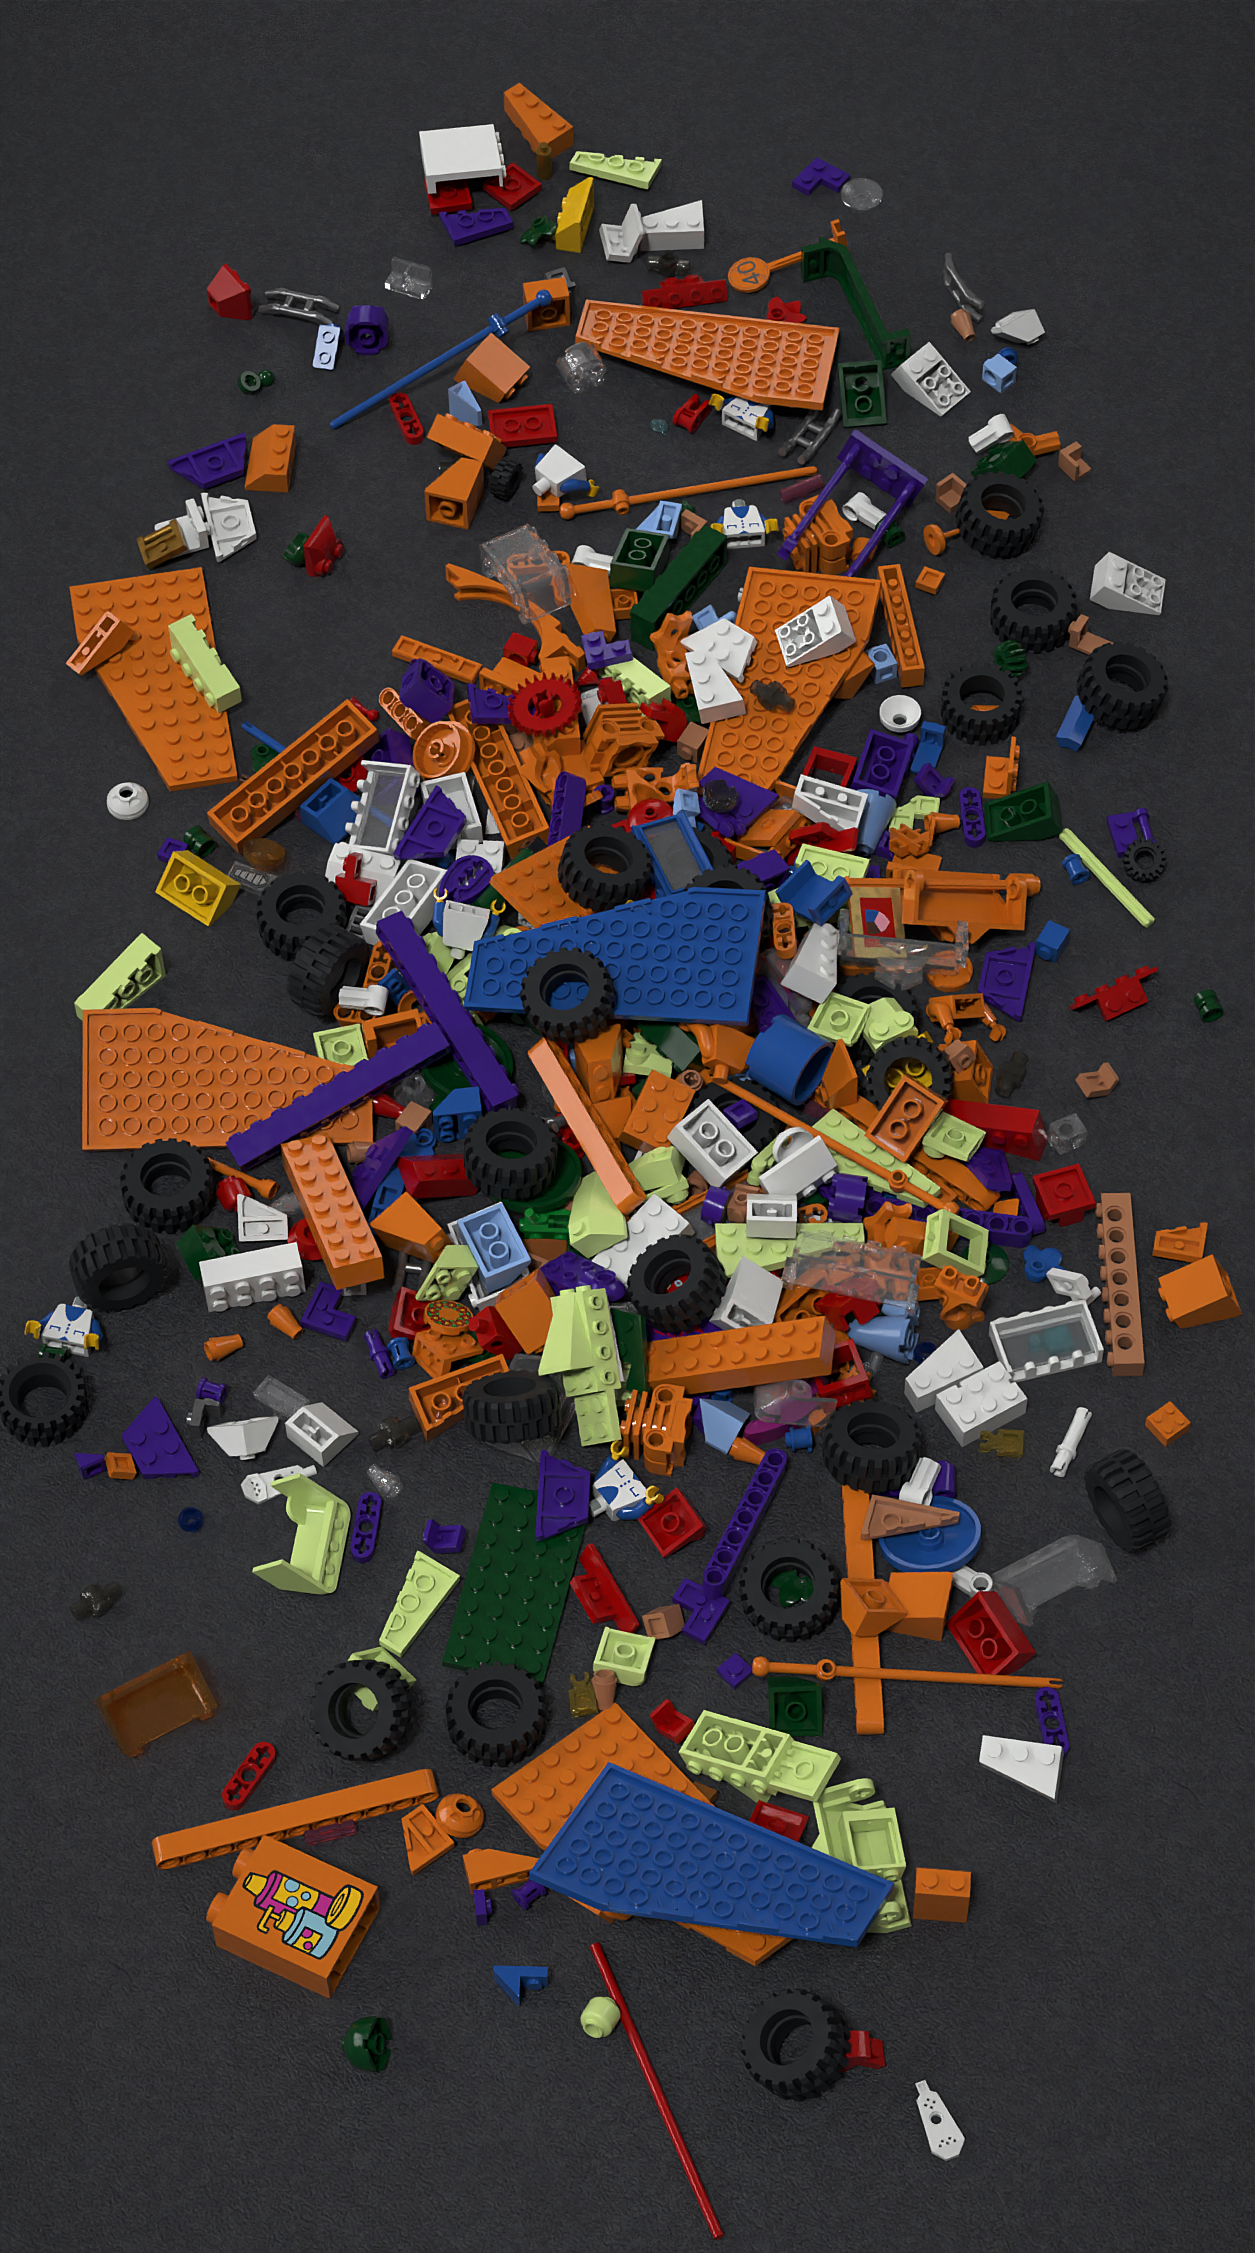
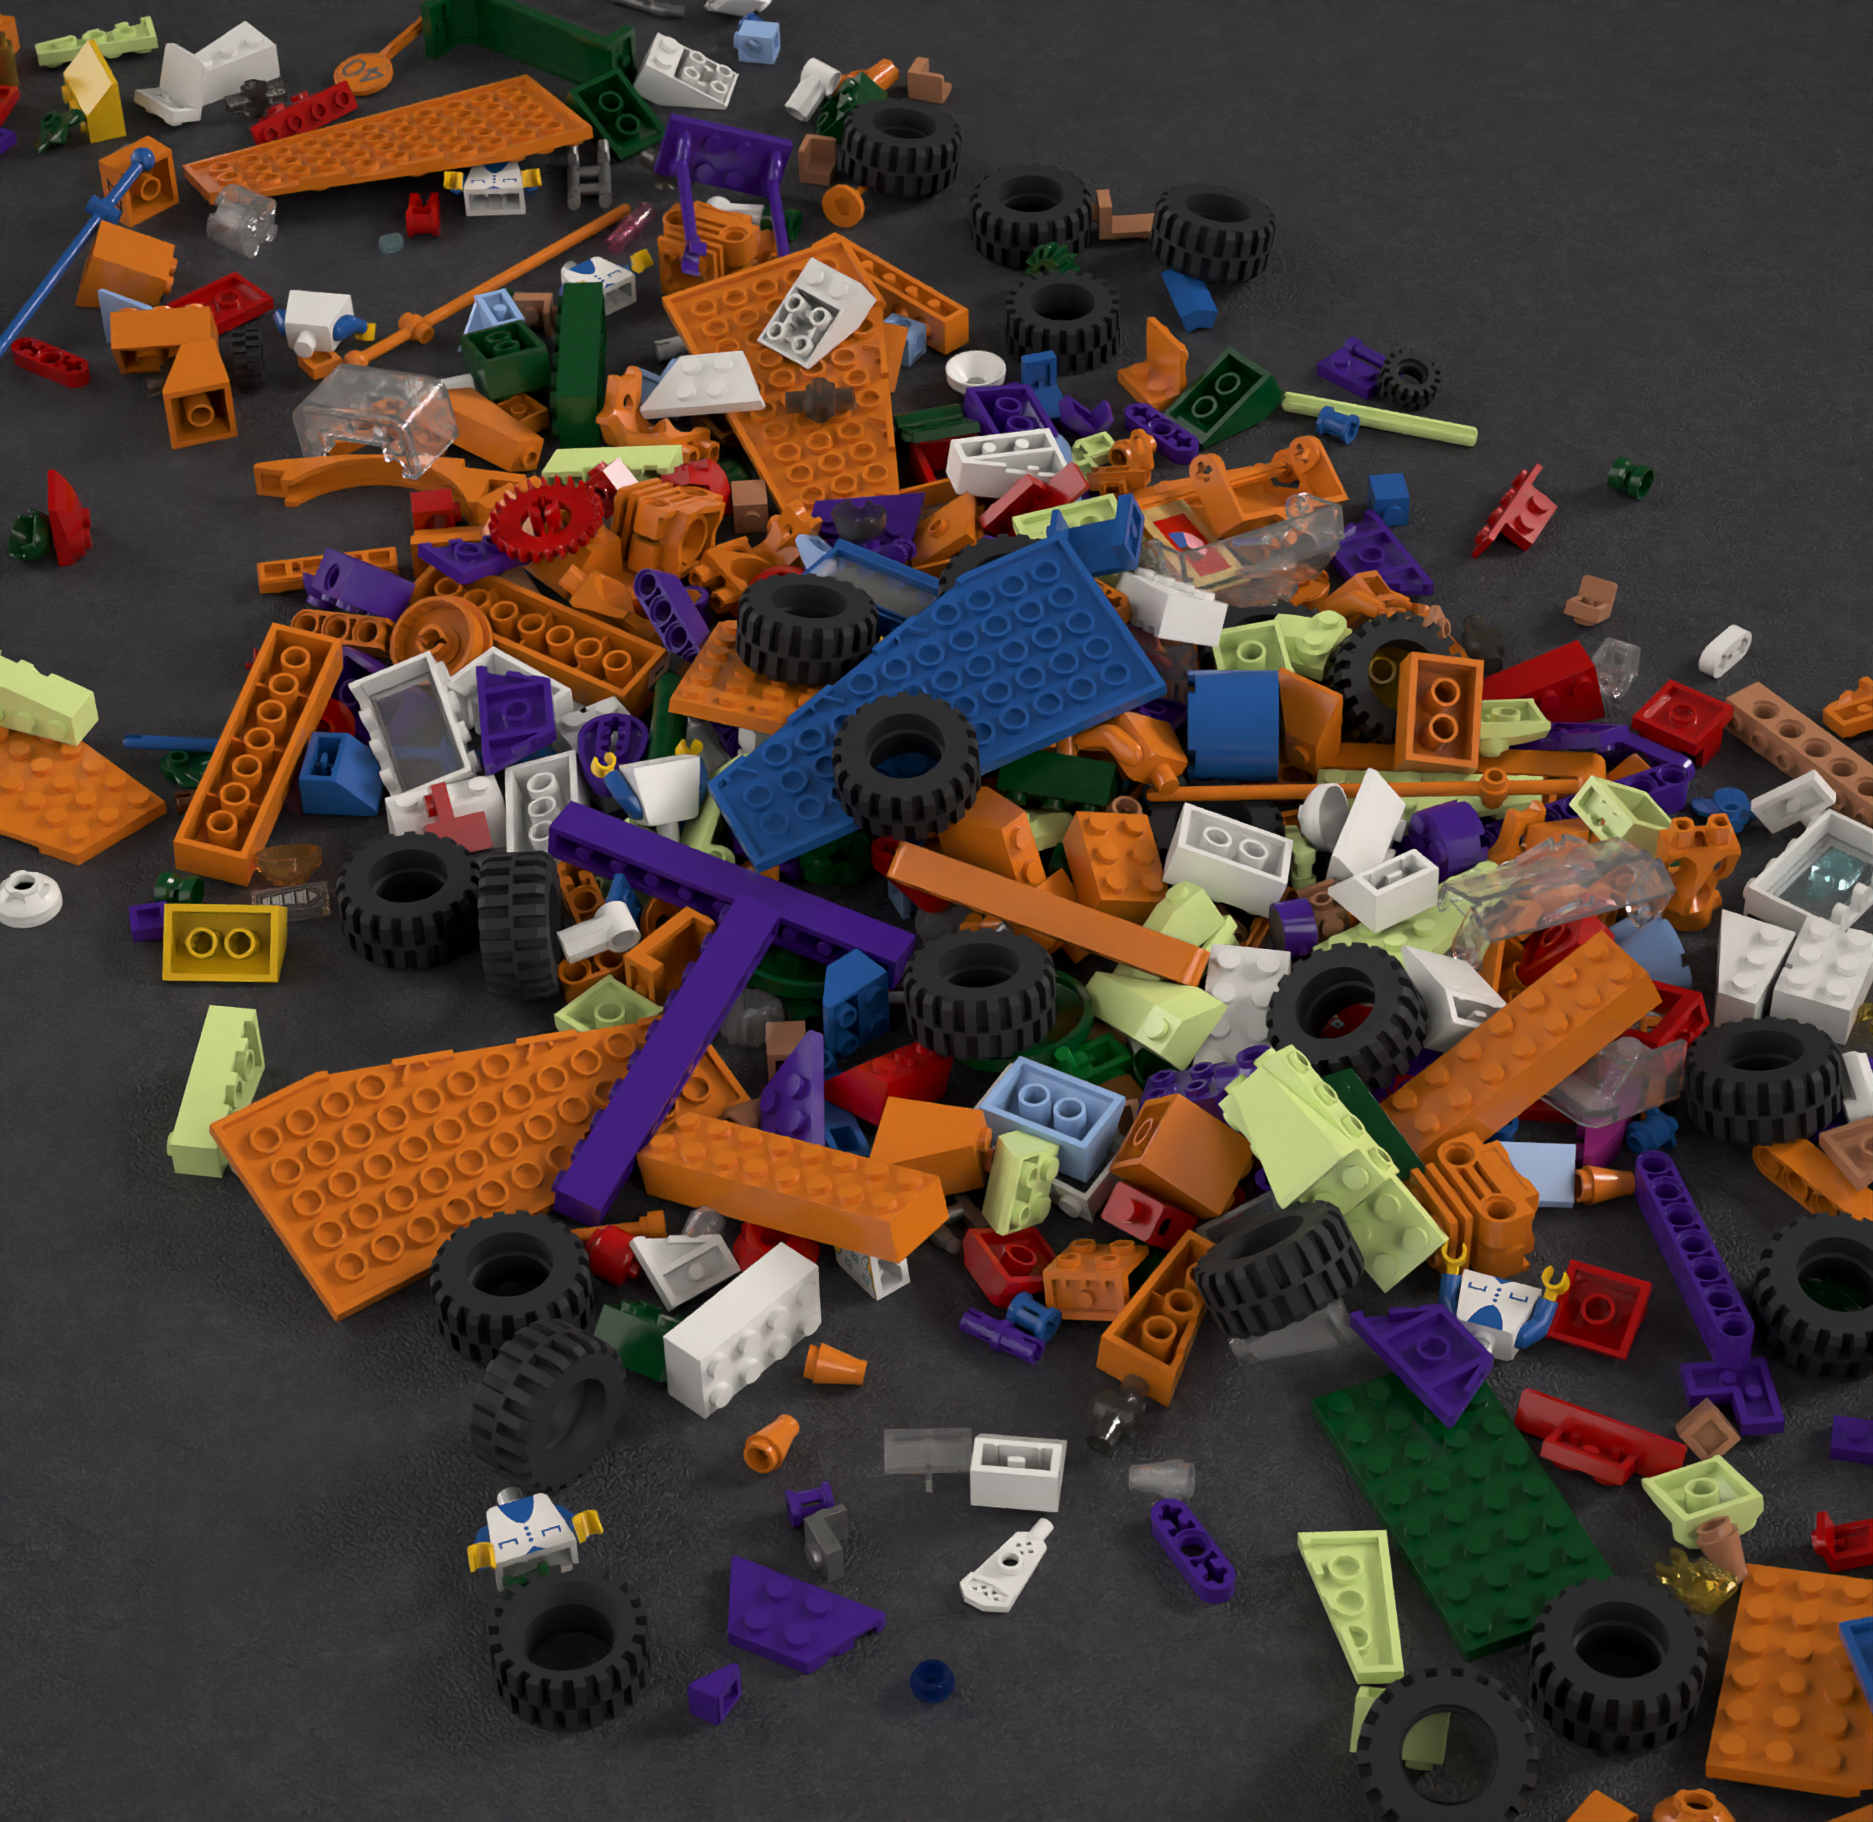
camera: 35 degrees left, 15 degrees down
(120, 1465) = (766, 1670): orange plate -> none
(245, 1436) = (914, 1532): white slope -> none
(318, 1540) = (1135, 1596): yellowish green windscreen -> none
(323, 1316) = (883, 1334): dark purple plate -> none
(386, 1106) = (738, 1052): red cone -> none
(443, 1538) = (1318, 1498): dark purple bracket -> none
(447, 1317) = (1065, 1232): tile -> none
(601, 654) = (560, 459): dark purple plate -> none
(712, 688) = (735, 424): white wedge -> none
(740, 1114) = (1232, 807): dark purple plate -> none
(785, 311) = (441, 87): red plate -> none
(835, 744) = (932, 425): none -> dark green piece
(923, 1347) = (1701, 965): clear blue plate -> none
(930, 580) = (877, 243): orange plate -> none
(963, 324) = (669, 19): nougat cone -> none
(1126, 586) = (1107, 158): white slope -> none
(1142, 1159) = (1725, 651): none -> white beam

